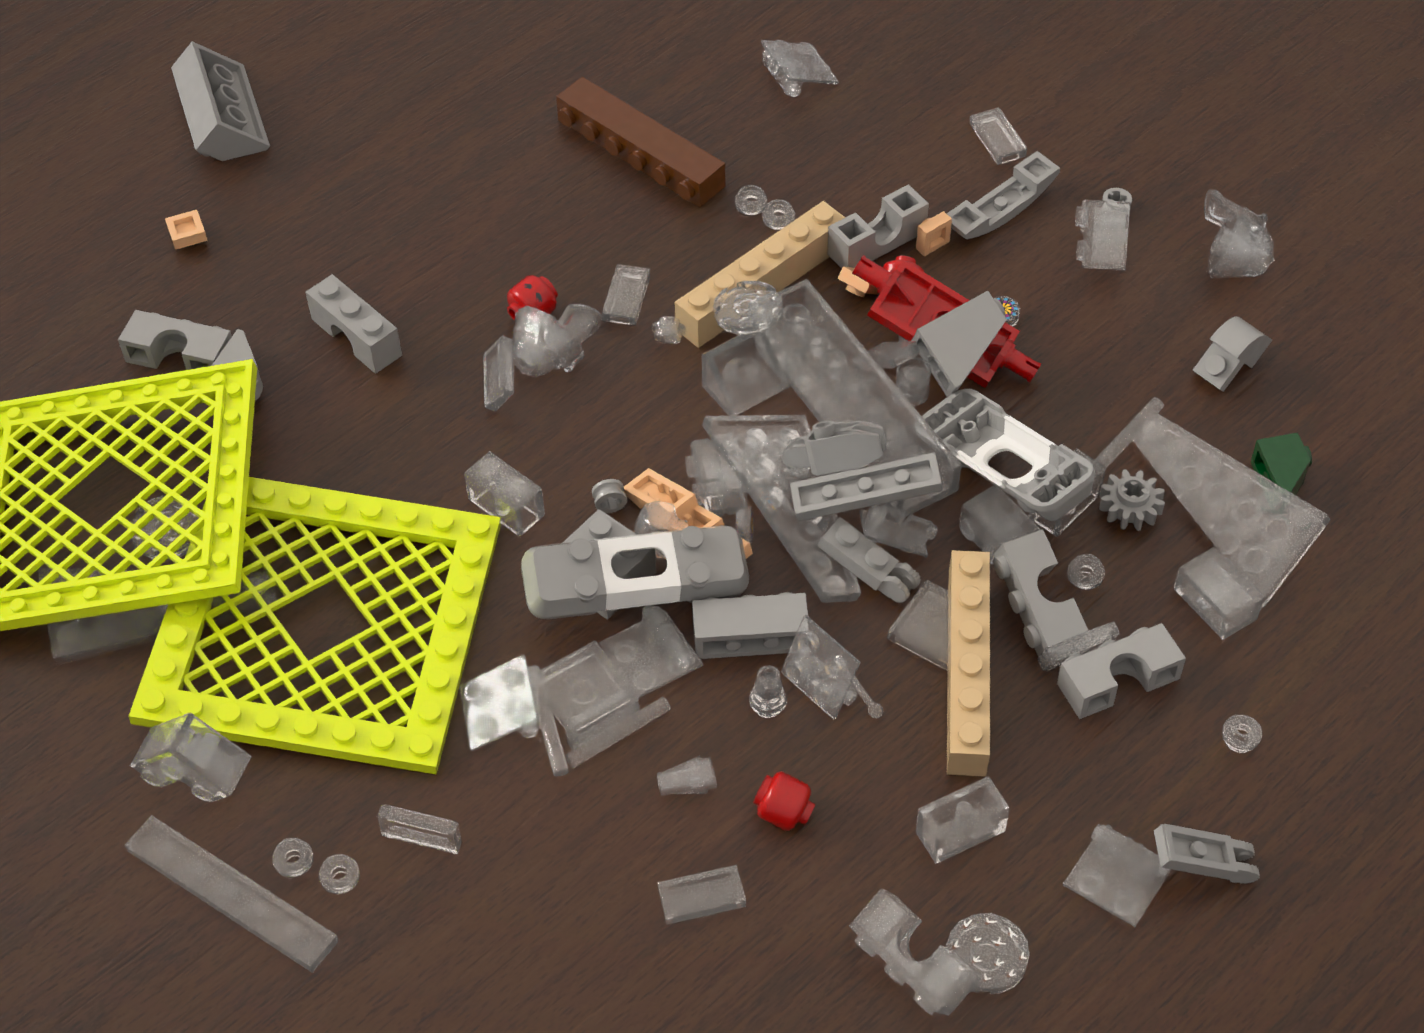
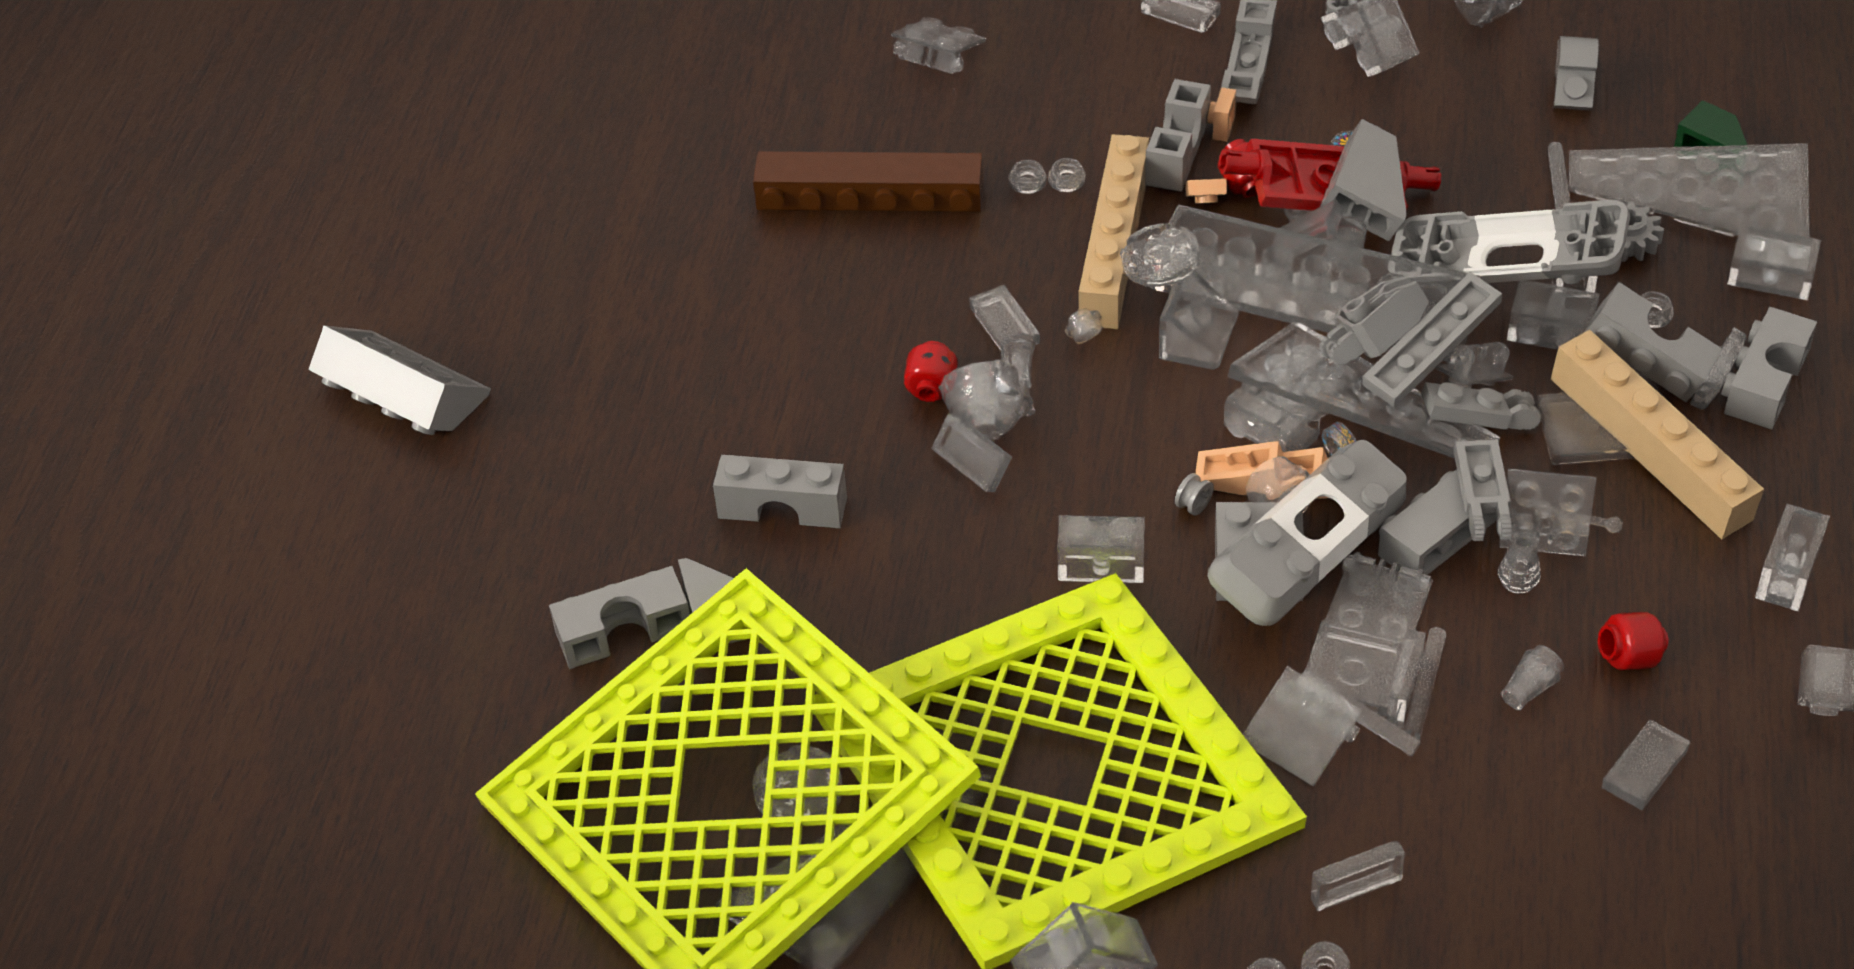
camera: 35 degrees left, 5 degrees down
(186, 229) = (498, 509): light nougat plate -> none
(783, 617) = (1483, 486): none -> light grey hinge

